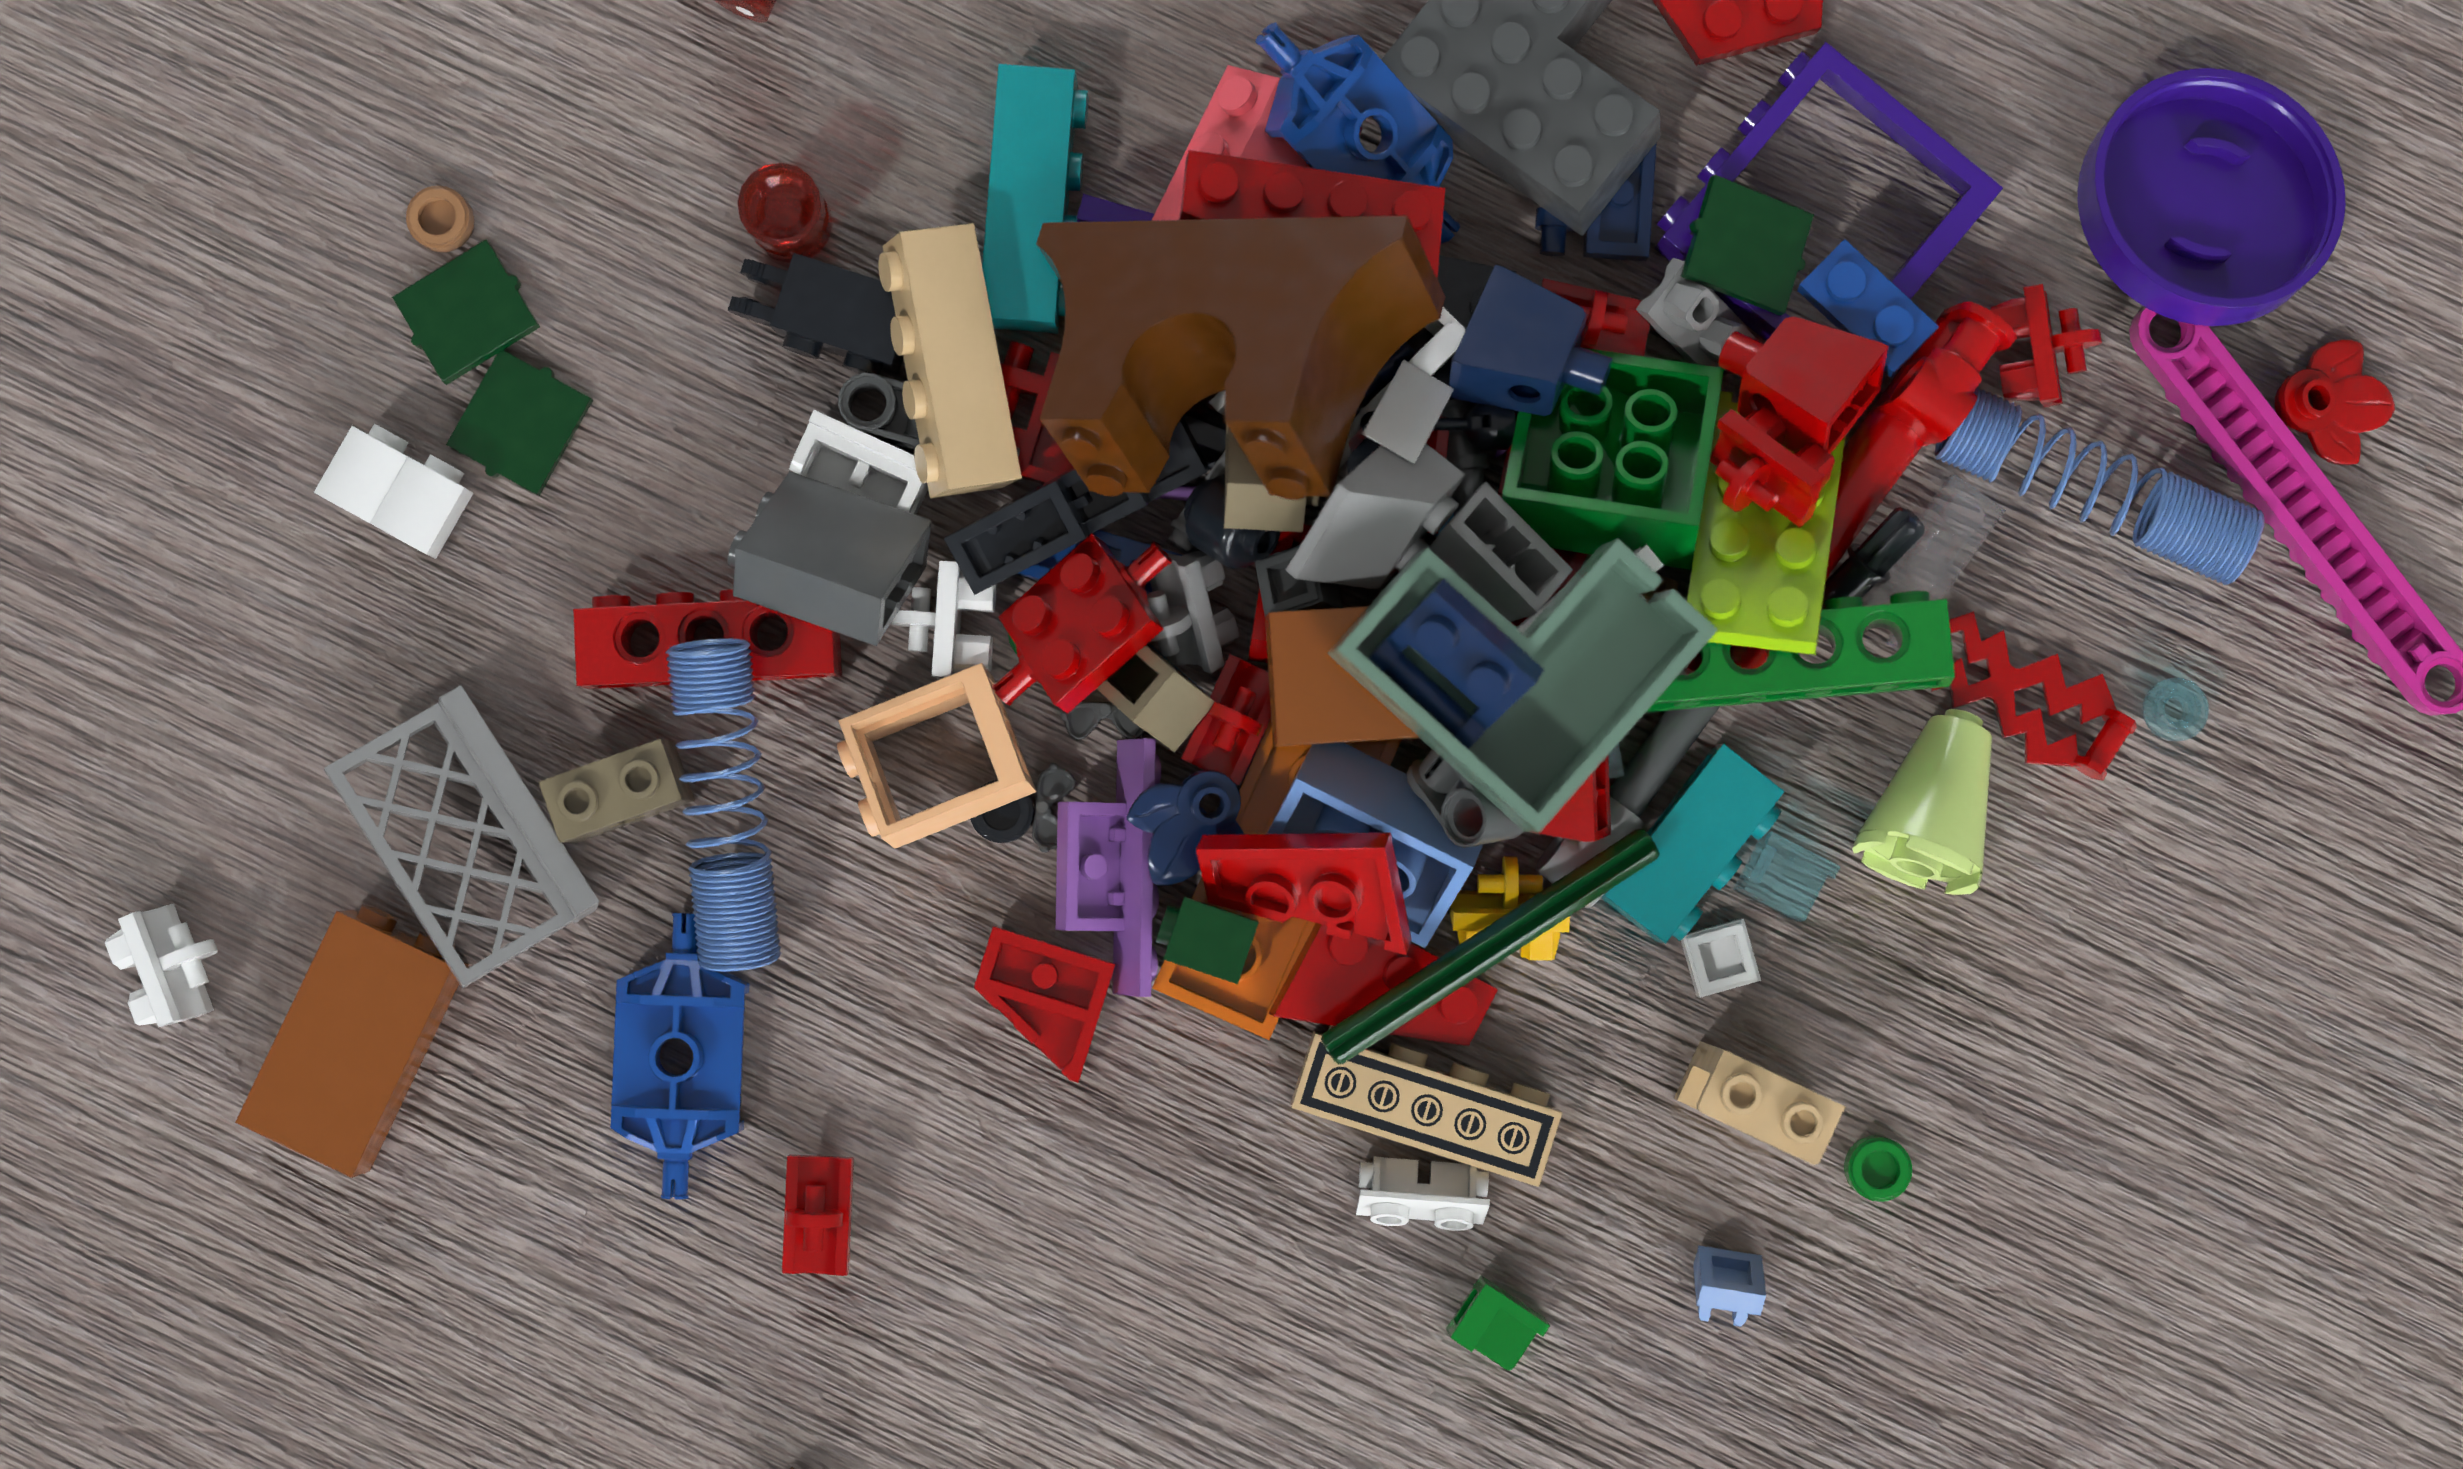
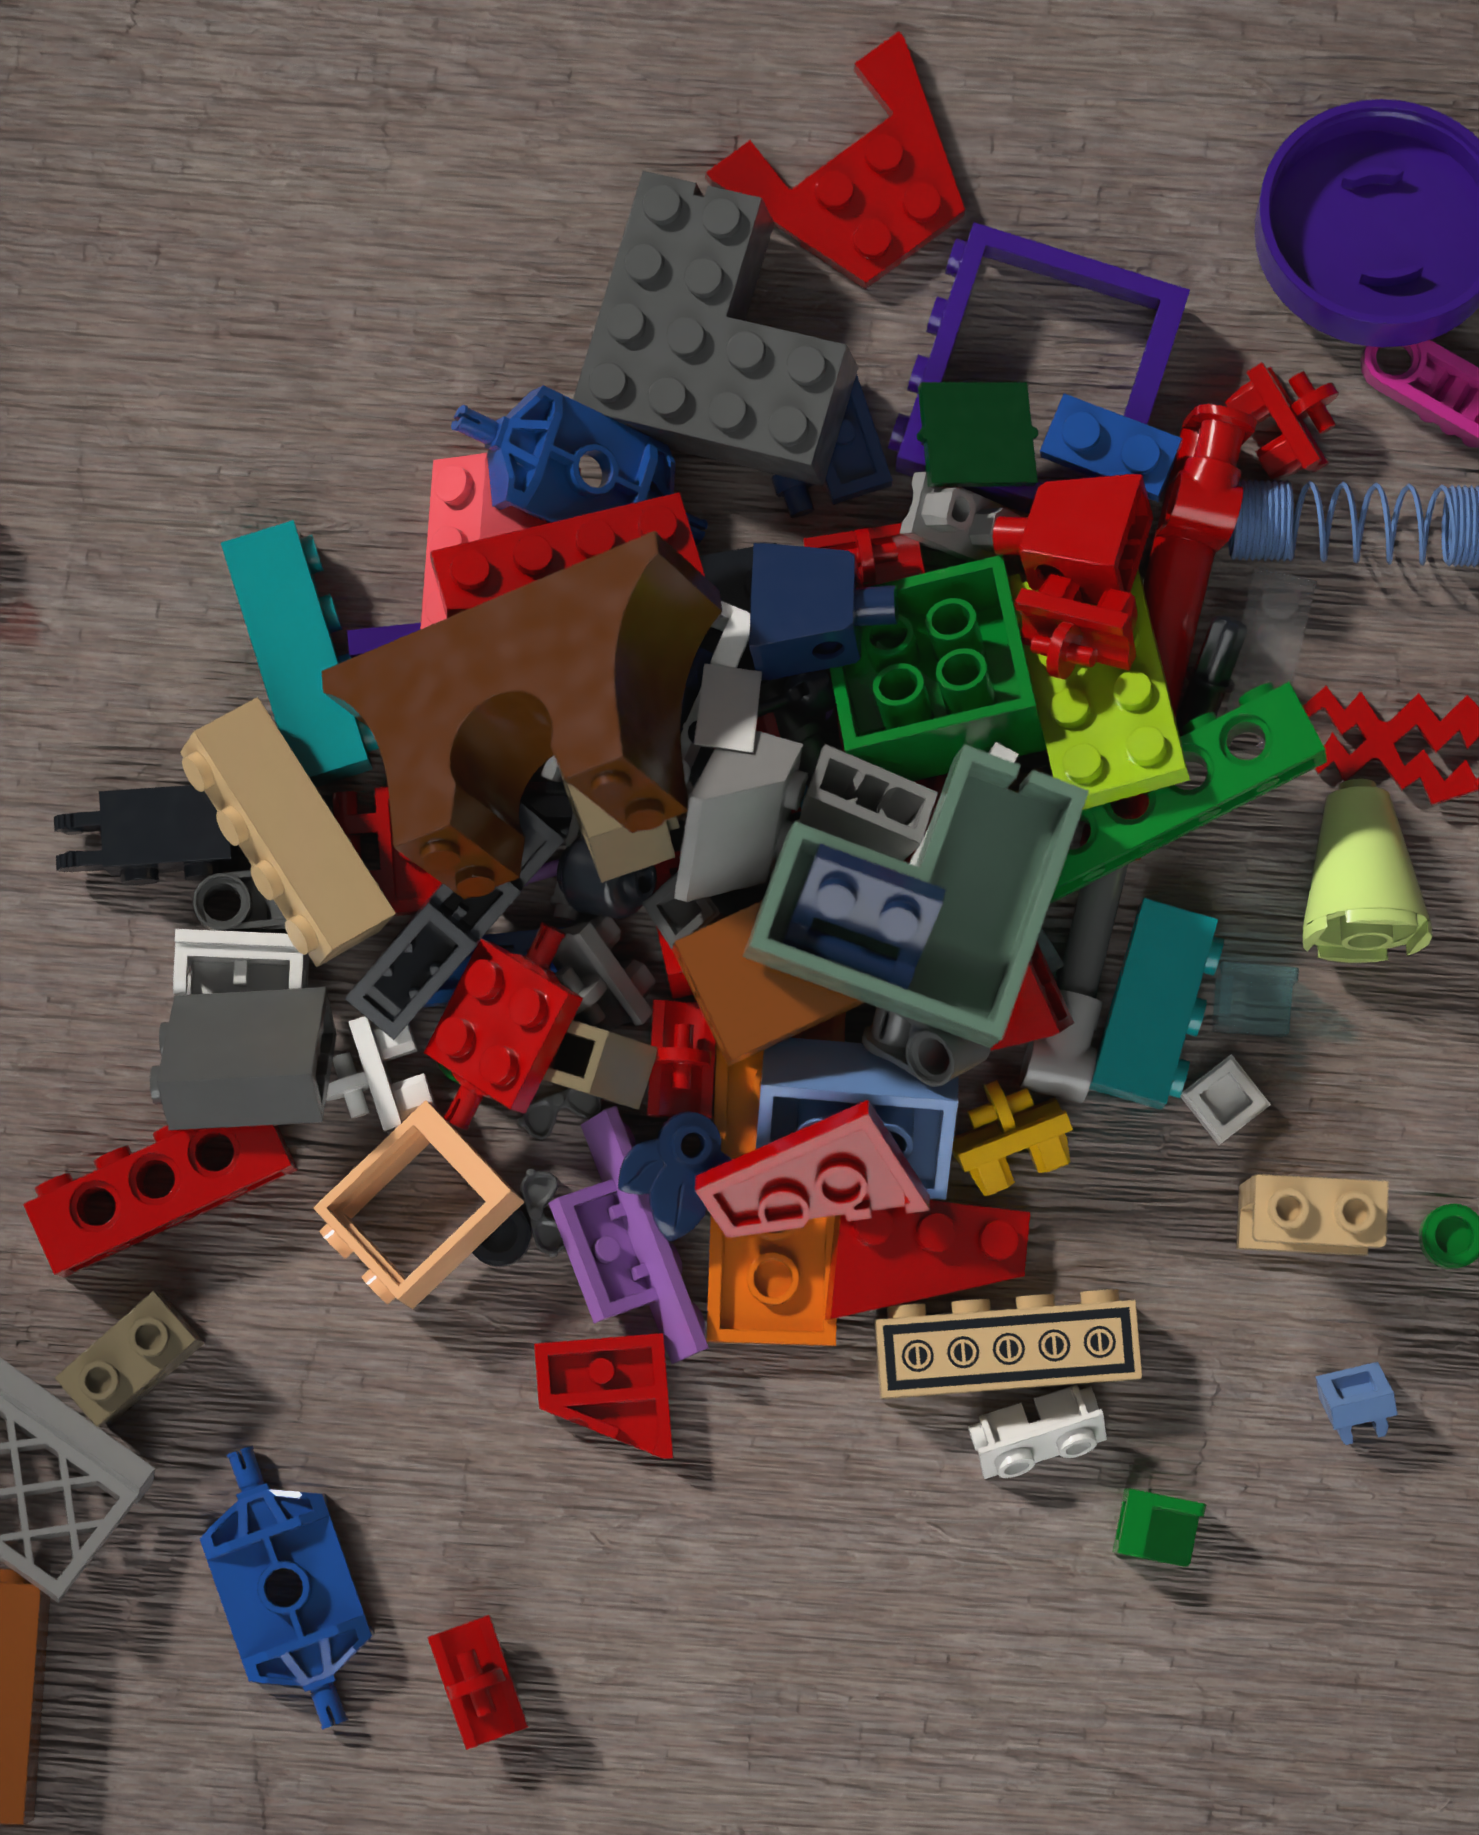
camera: 20 degrees left, 5 degrees down
(731, 889) = (278, 1407): medium blue piece -> none
(784, 212) = (75, 758): clear red wheel -> none
(1207, 939) = (739, 1271): dark green brick -> none
(1490, 946) = (1004, 1171): dark green axle -> none

